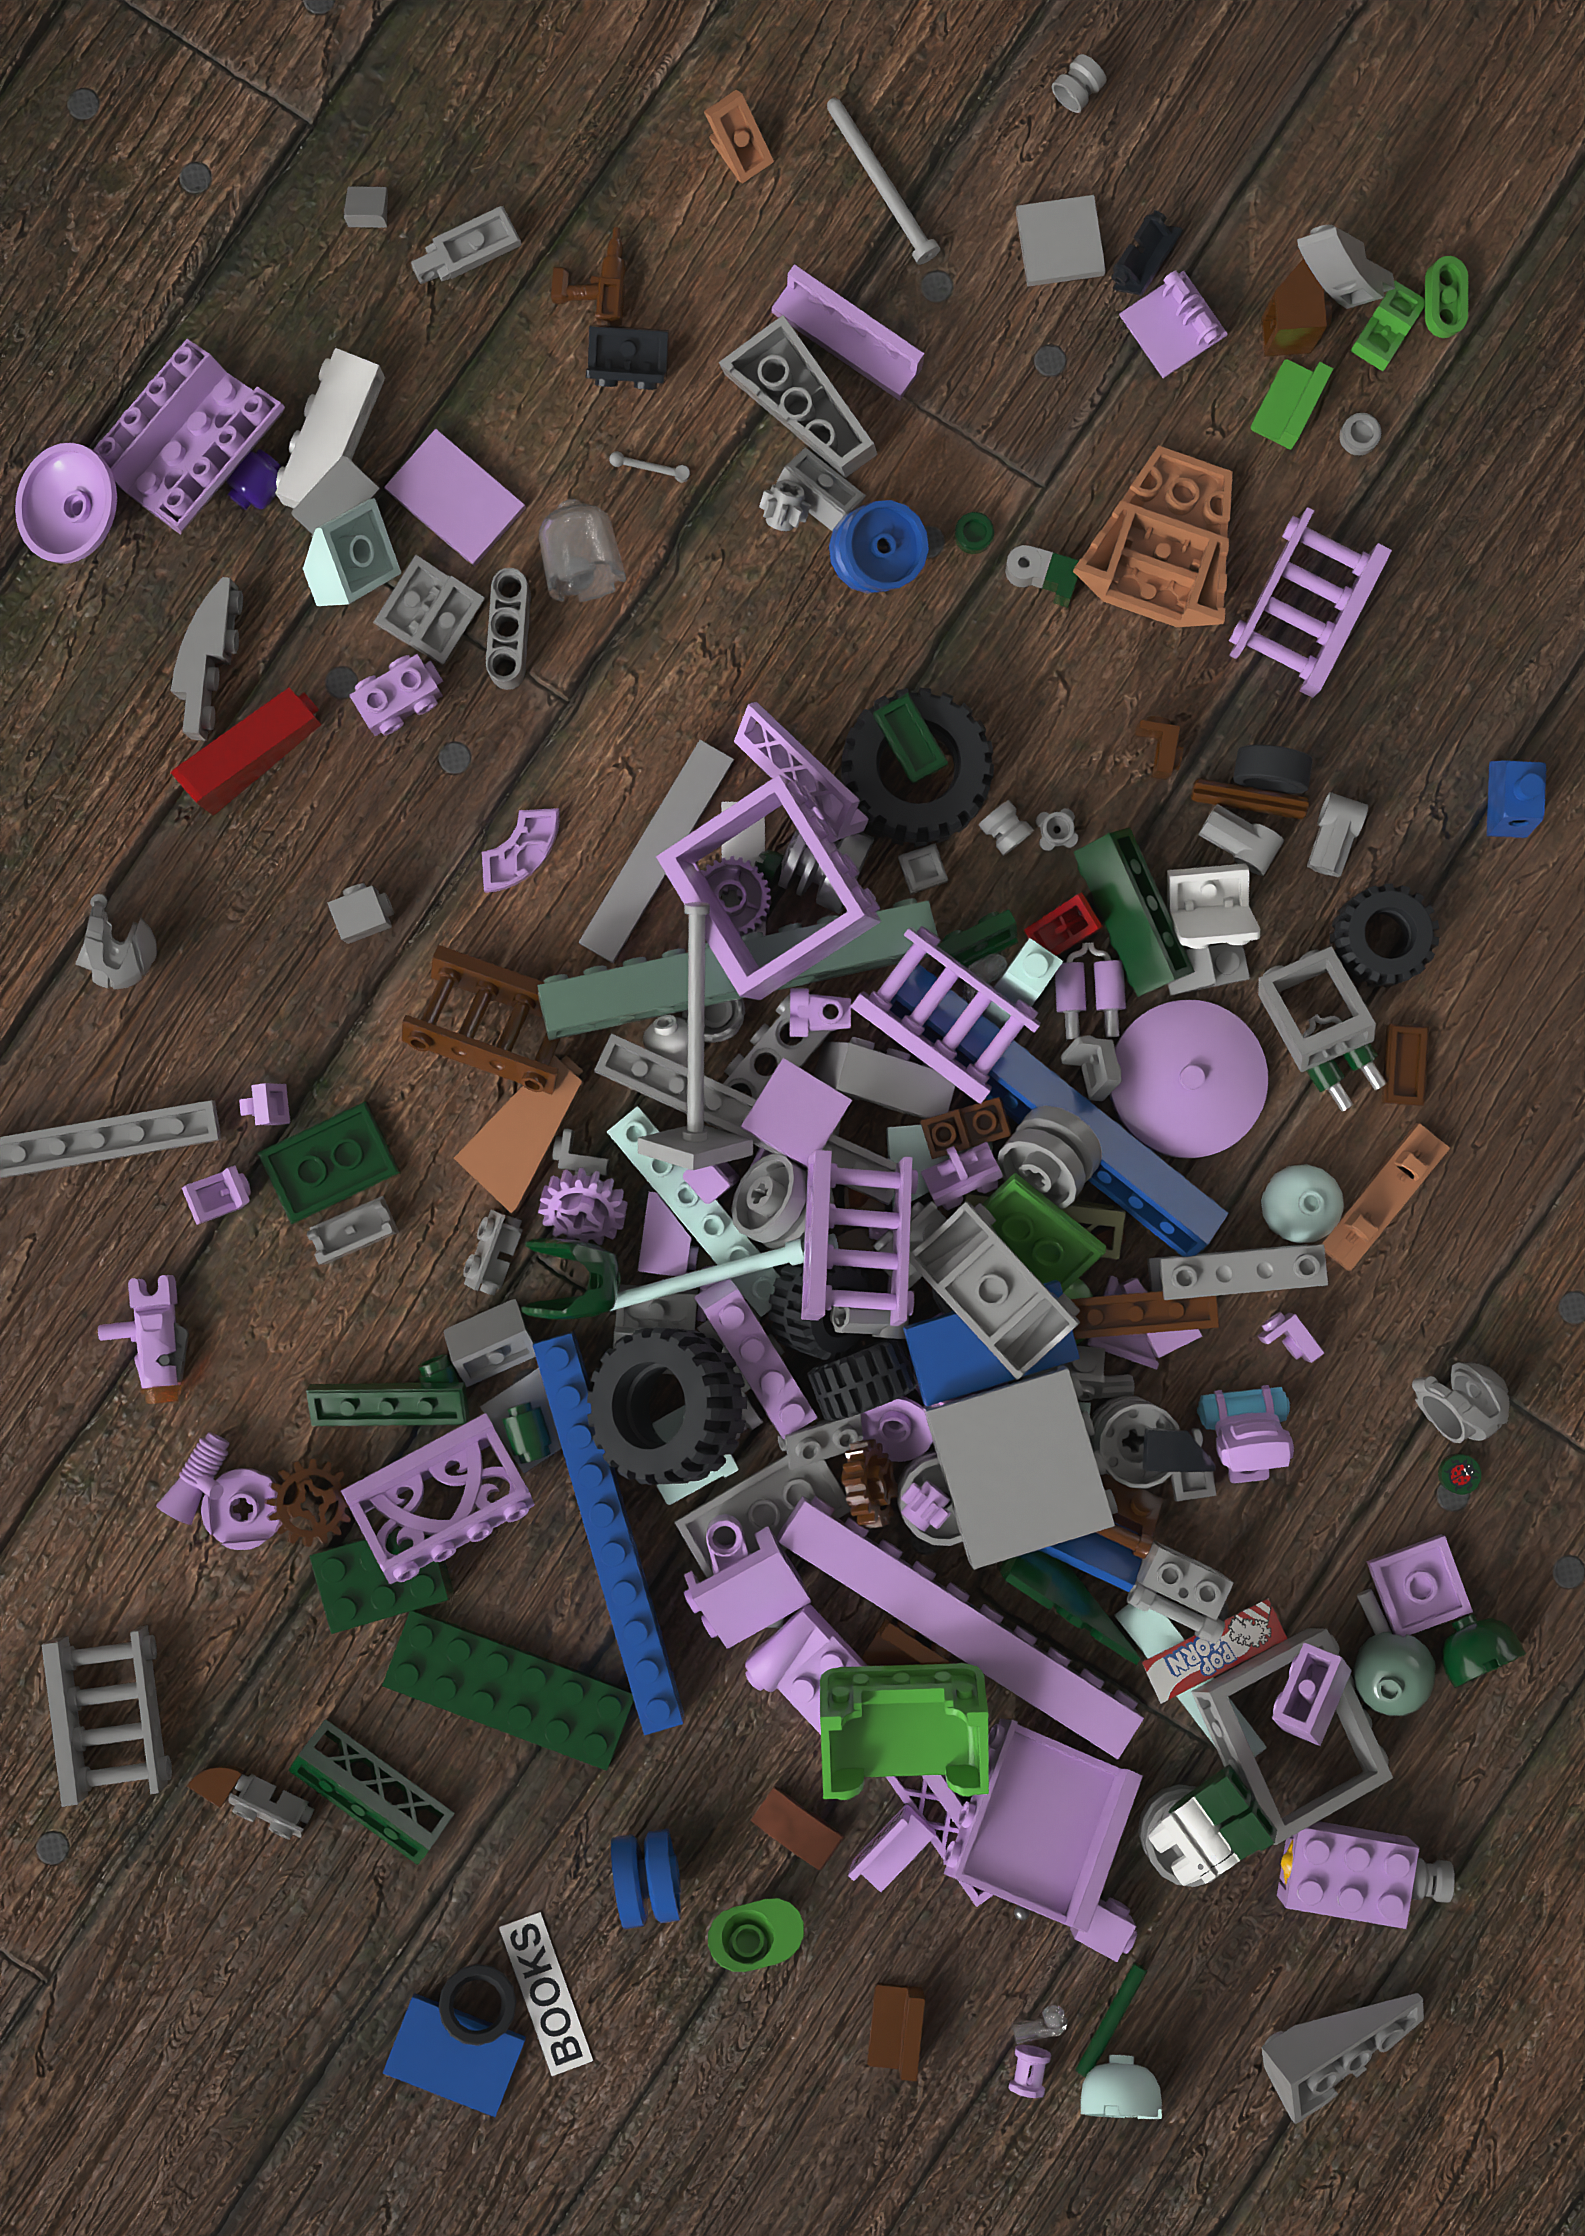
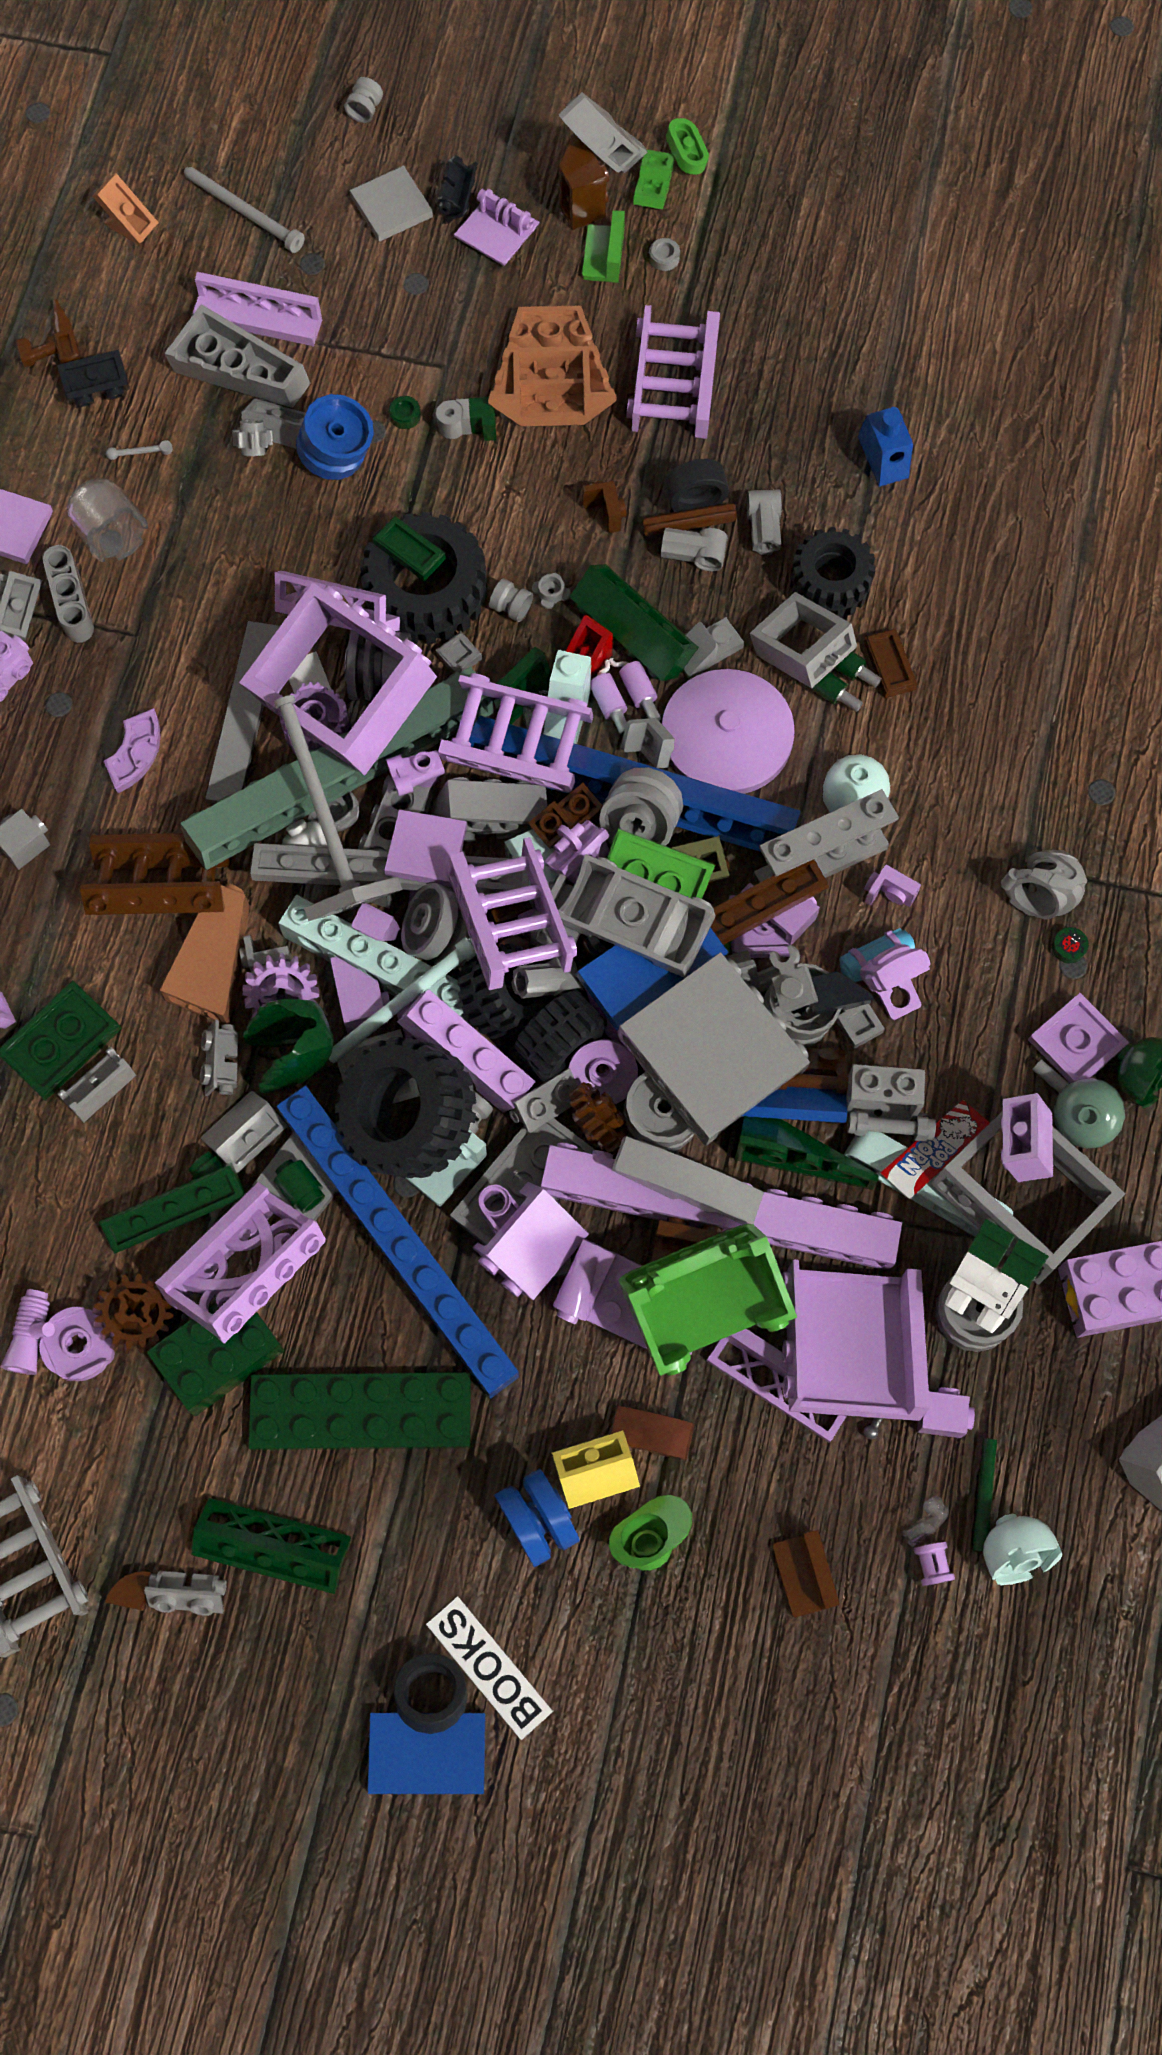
camera: 15 degrees left, 15 degrees down
(724, 1849) = (596, 1469): none -> light yellow brick
(771, 865) = (339, 686): dark green hinge -> none
(892, 1848) = (739, 1417): lavender panel -> none
(925, 1505) = (650, 1108): lavender gear -> none
(933, 1600) = (687, 1180): none -> light grey slope
(1132, 1433) = (794, 985): none -> light grey plate
(1211, 905) = (689, 594): white bracket -> none
(1384, 1196) = (918, 760): nougat hinge -> none

